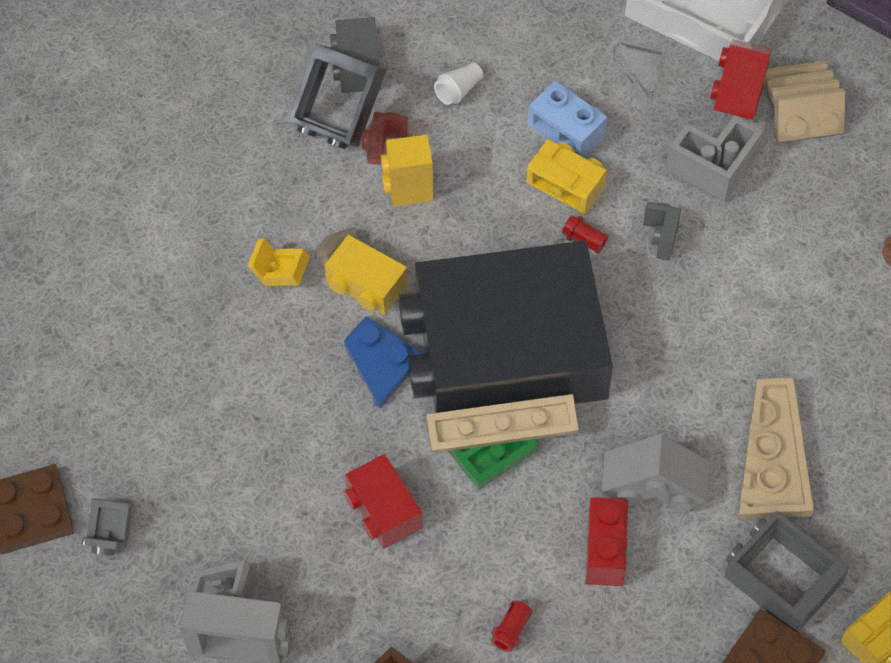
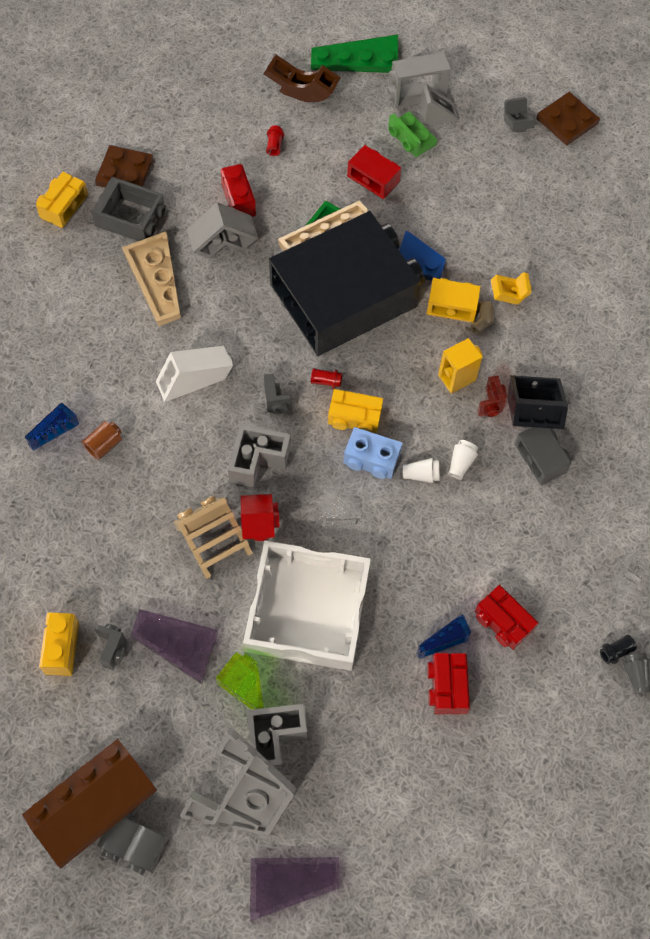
camera: 155 degrees right, 5 degrees up
(286, 564) = (411, 133): none -> bright green bracket
(512, 84) = (424, 470): none -> white cone
(762, 288) = (192, 370): none -> white slope

